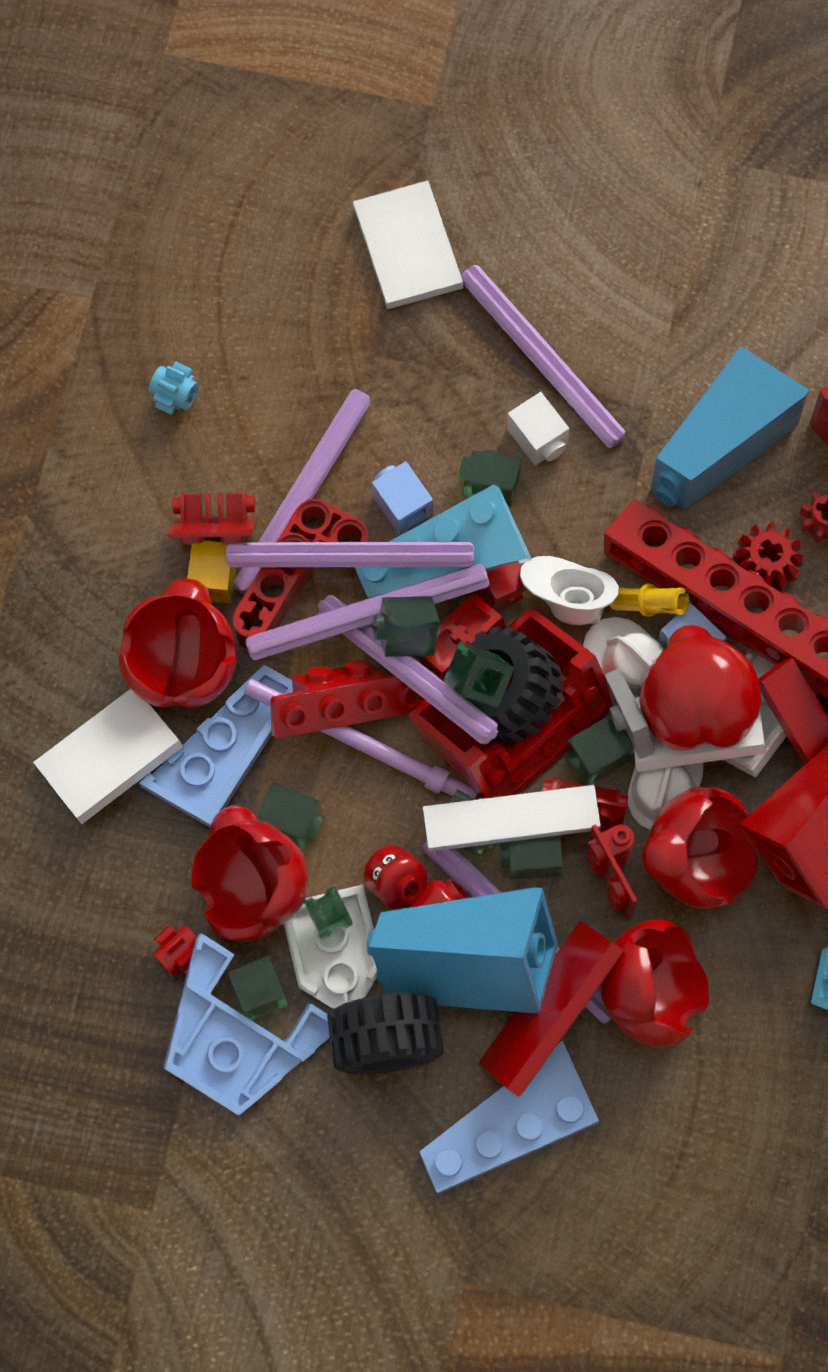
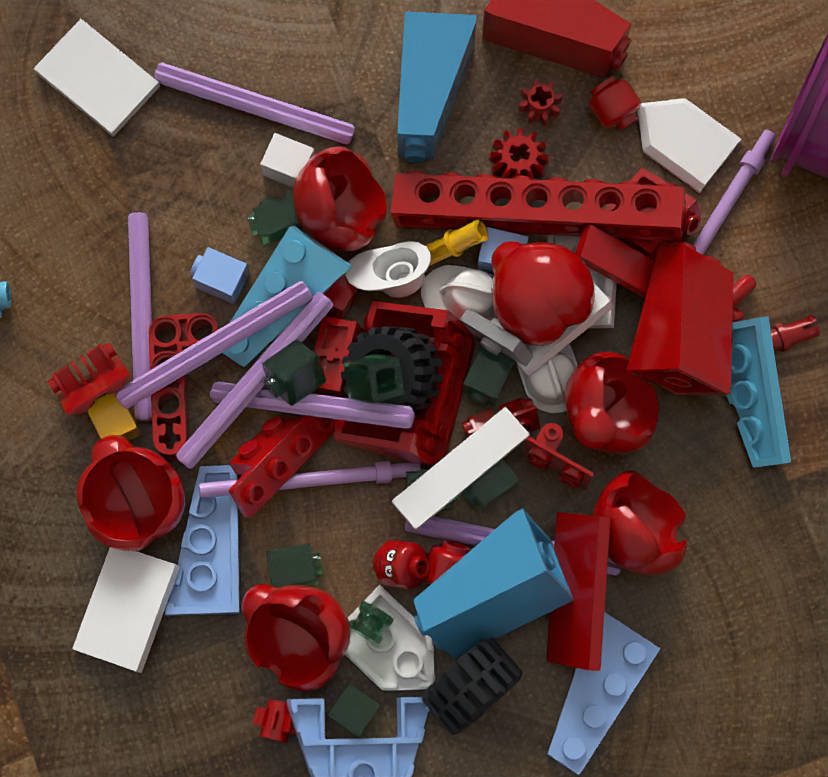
camera: 35 degrees left, 5 degrees up
(561, 490) = (339, 199): none -> red piece

